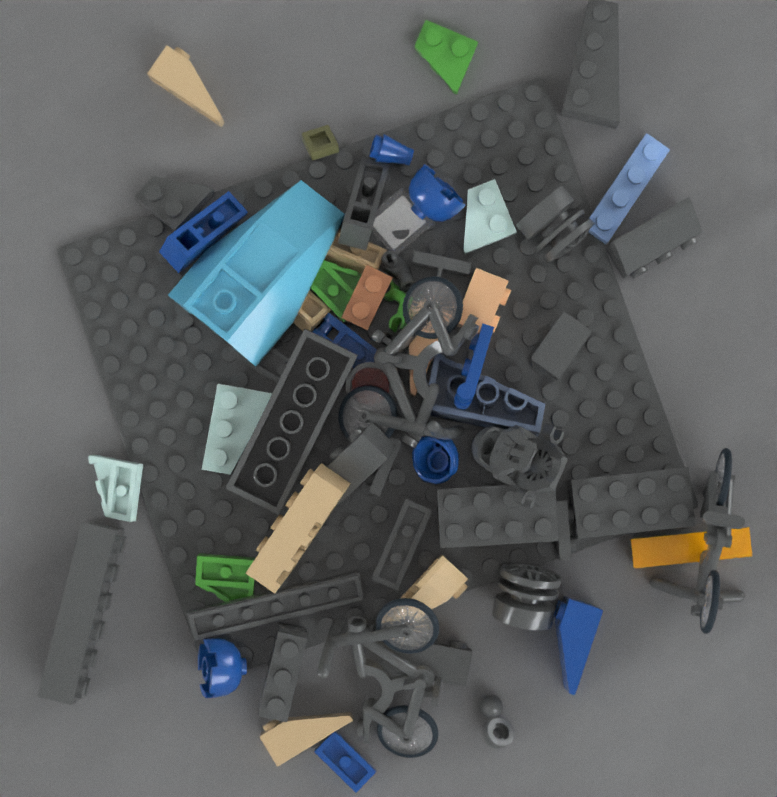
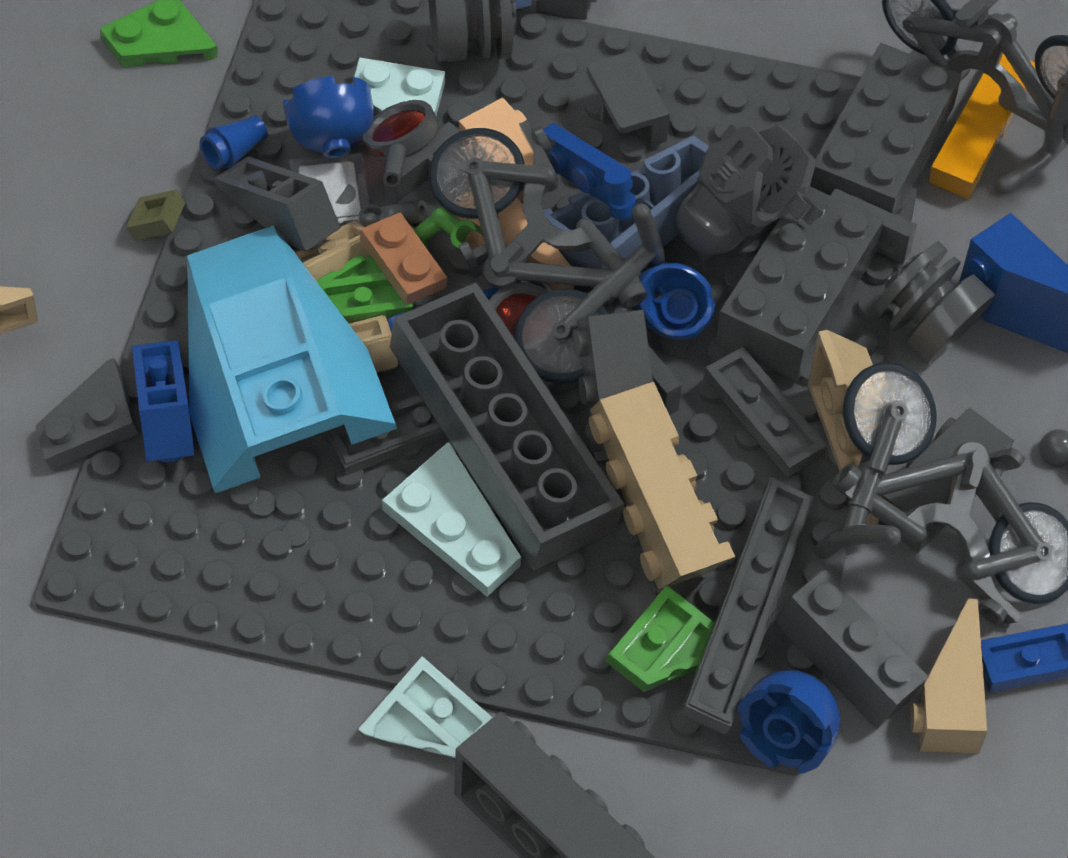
camera: 65 degrees left, 30 degrees down
(445, 241) = (398, 133): none -> dark grey piece

